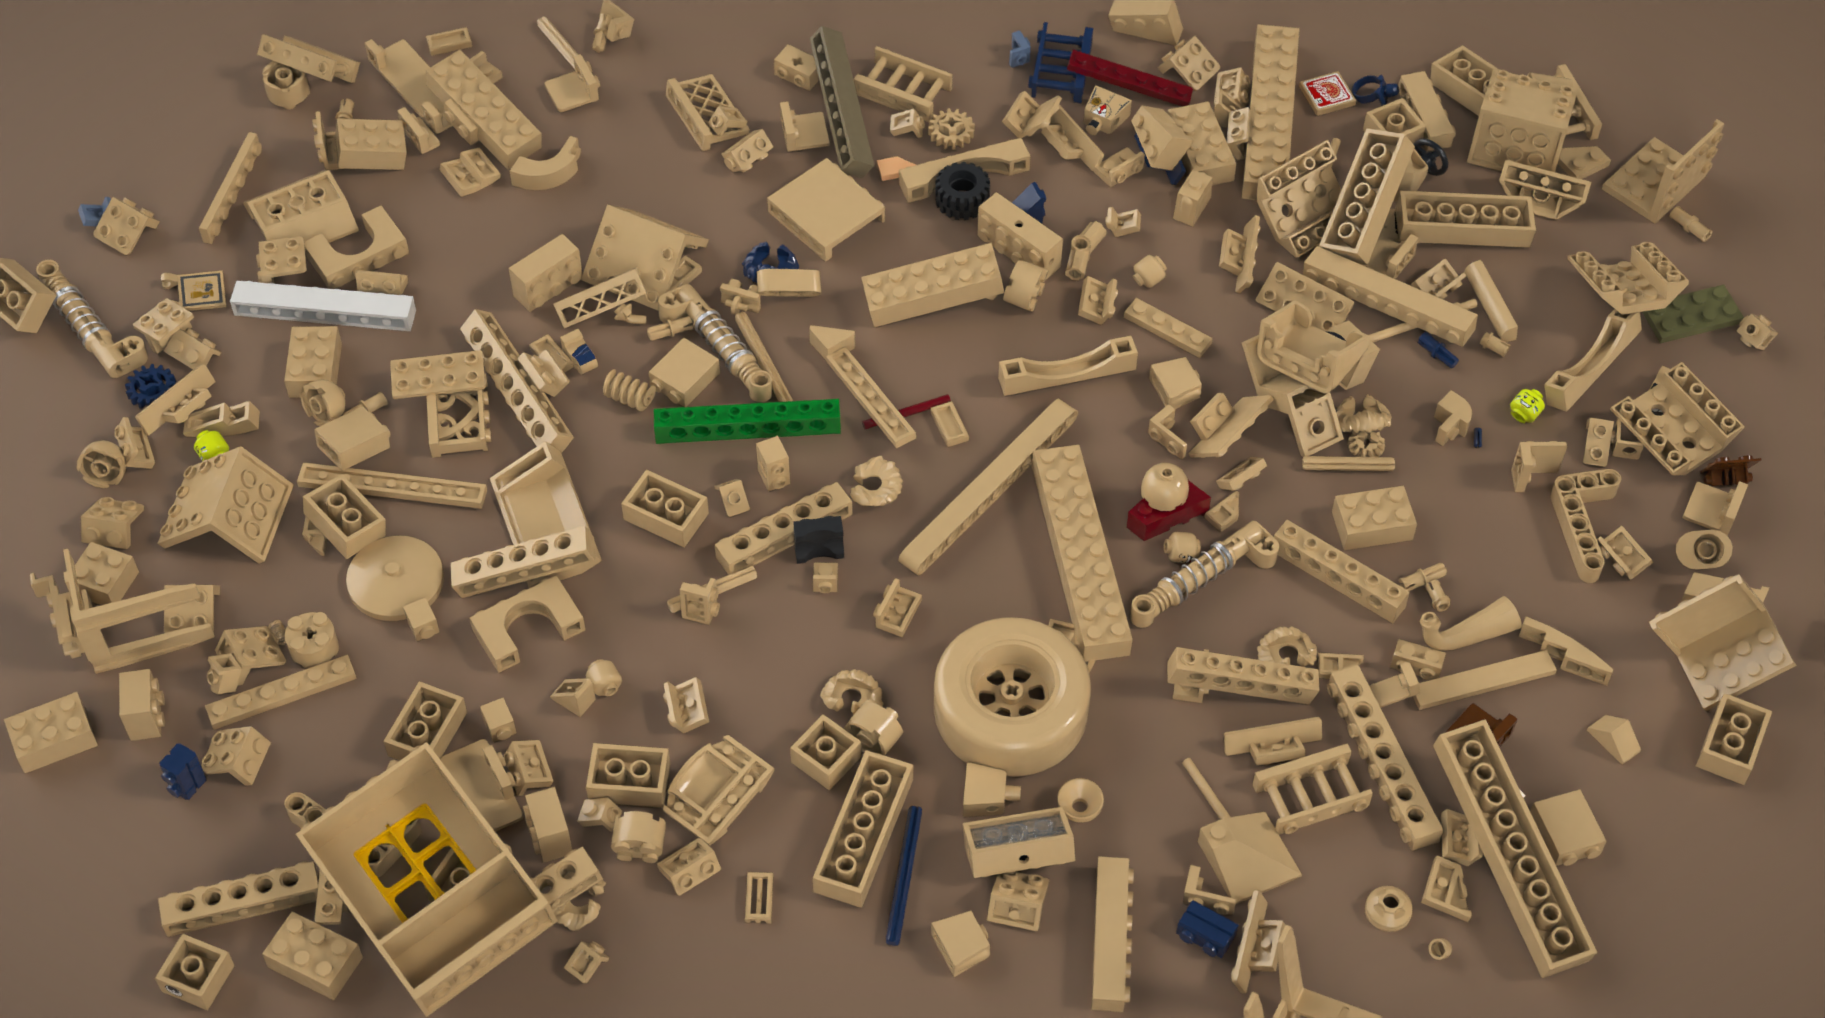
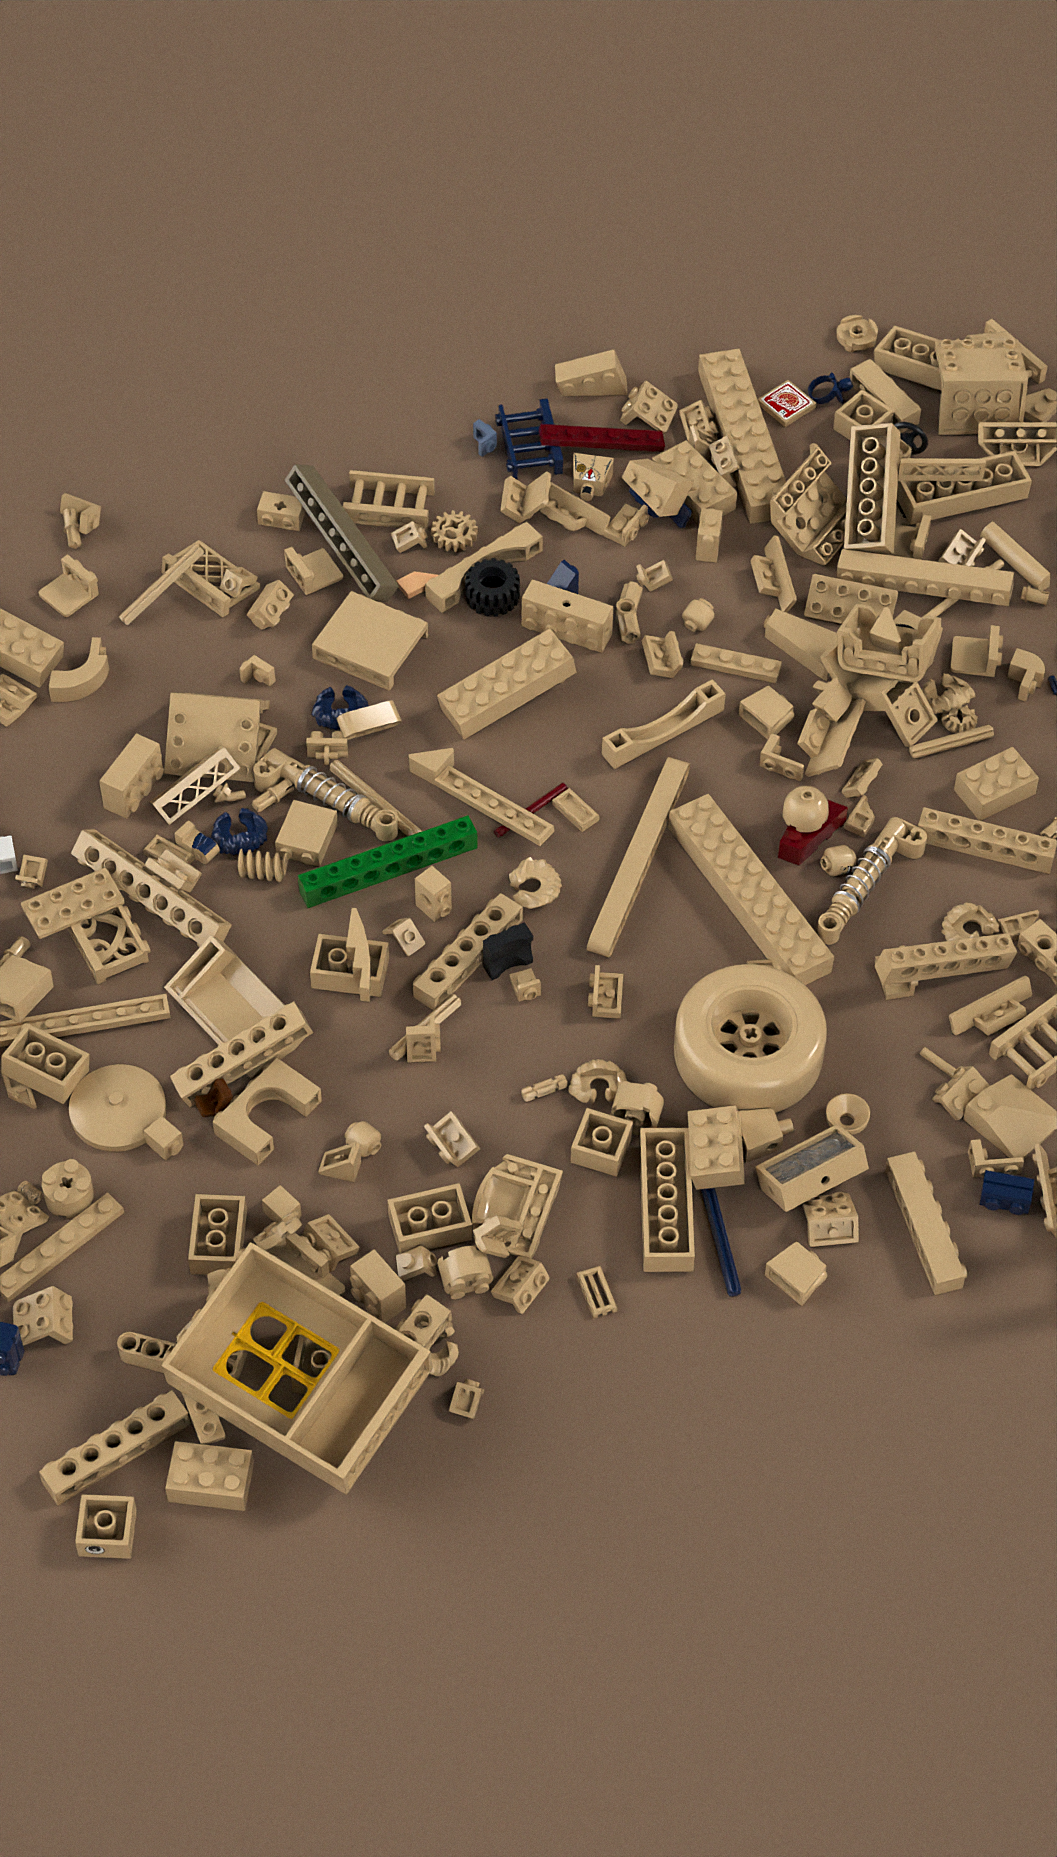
camera: 20 degrees left, 0 degrees up
(419, 336) = (32, 872): none -> tan bracket
(477, 741) = (276, 1232): none -> tan plate
(483, 599) = (216, 1099): none -> reddish brown bracket
(557, 39) = (33, 548): tan axle -> none
(627, 364) = (247, 840): none -> dark blue piece
(655, 104) = (161, 584): none -> tan axle
(672, 497) = (358, 951): none -> tan slope
(676, 810) = (494, 1233): none -> tan bracket
(708, 205) = (259, 669): none -> tan bracket
(798, 682) = (544, 1087): none -> tan axle
(931, 792) = (716, 1147): none -> tan brick
(1025, 285) = (592, 660): tan brick -> none
(1204, 811) = (960, 1090): none -> tan bracket
(1235, 318) = (800, 640): none -> tan slope
(1242, 387) = (833, 699): none -> tan brick
(1312, 335) = (885, 634): none -> tan slope
(1409, 385) = (977, 655): none -> tan bracket
(1418, 51) = (852, 341): none -> tan plate
(1437, 350) = (986, 615): dark blue axle -> none
(1444, 194) = (940, 469): none -> tan fence

